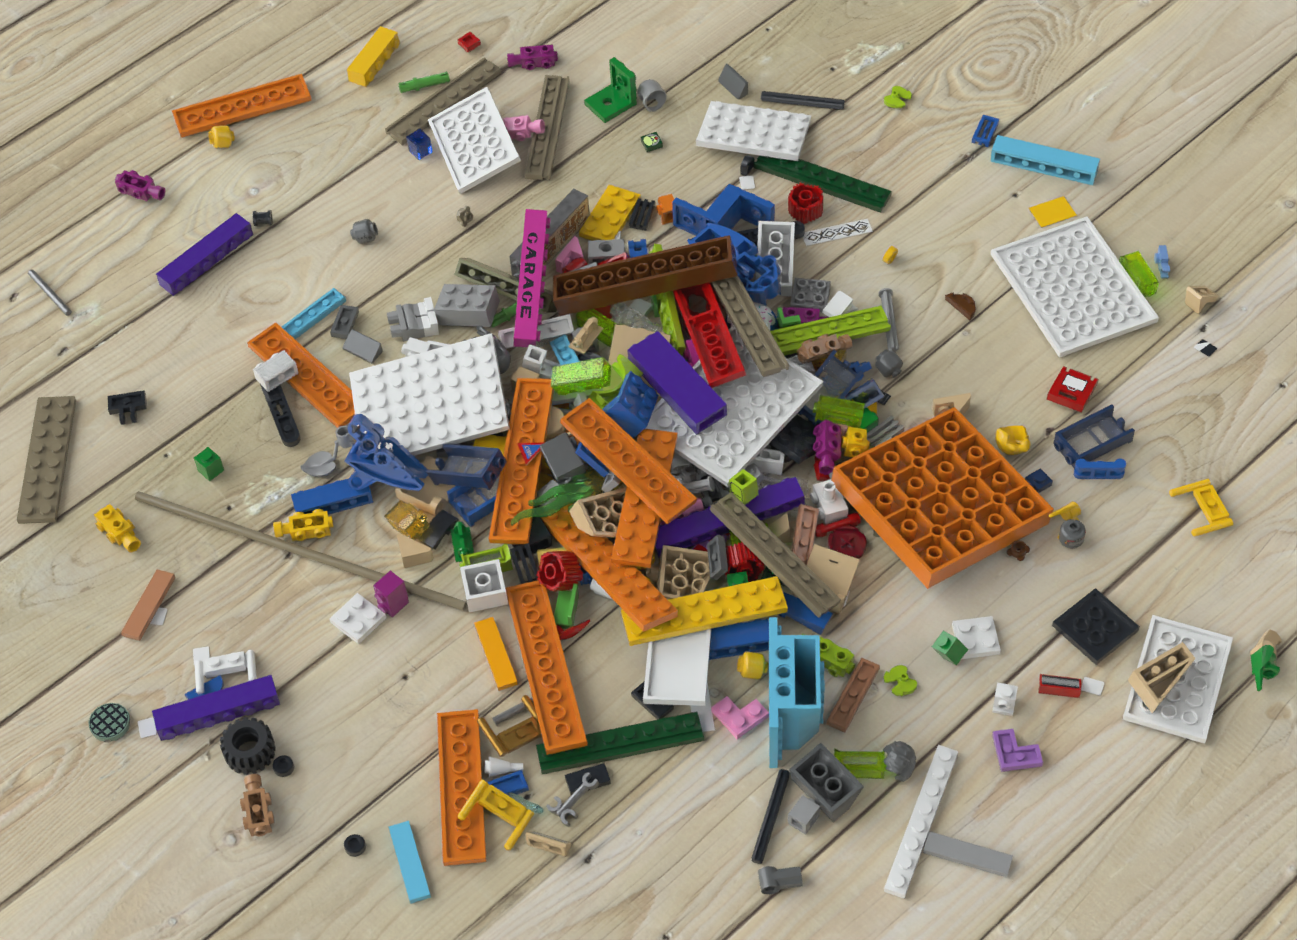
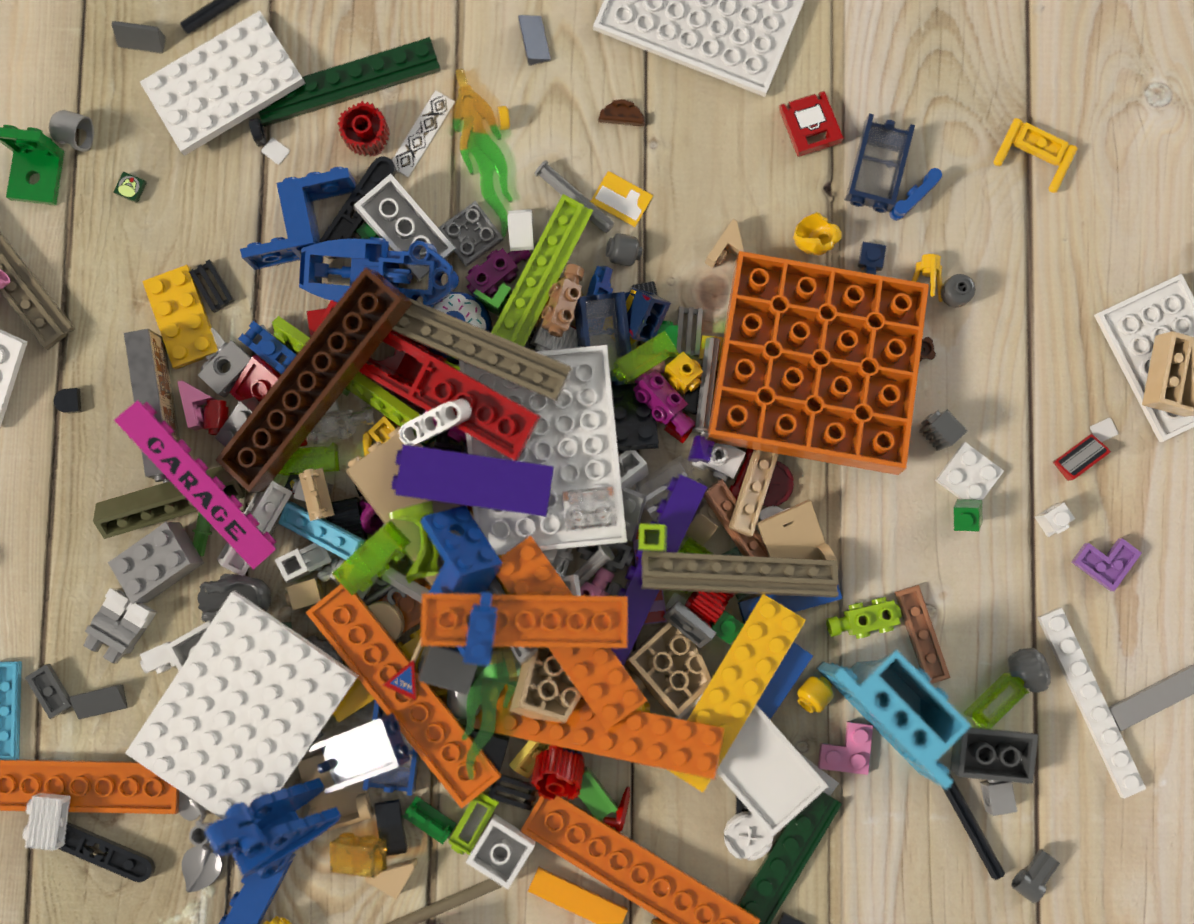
camera: 50 degrees left, 30 degrees up
(464, 216) = (35, 454): dark tan plate -> none
(508, 207) = (68, 400): none -> black tile
(599, 438) = (481, 632): none -> blue hinge
(627, 704) = (746, 837): none -> white tile
(665, 208) = (230, 259): orange brick -> none
(687, 335) = (425, 426): none -> white beam
(724, 442) = (590, 508): none -> clear brick
(819, 477) = (700, 450): none -> dark purple slope
(832, 530) = (753, 492): none -> tan tile
(863, 257) = (476, 140): none -> clear neon green piece
(905, 684) = (941, 577): lime piece -> none
(917, 344) = (621, 198): none -> sticker
(950, 233) = (534, 39): none -> slope
(981, 591) = (942, 429): none -> dark grey brick
(1095, 626) = (1059, 368): black plate -> none

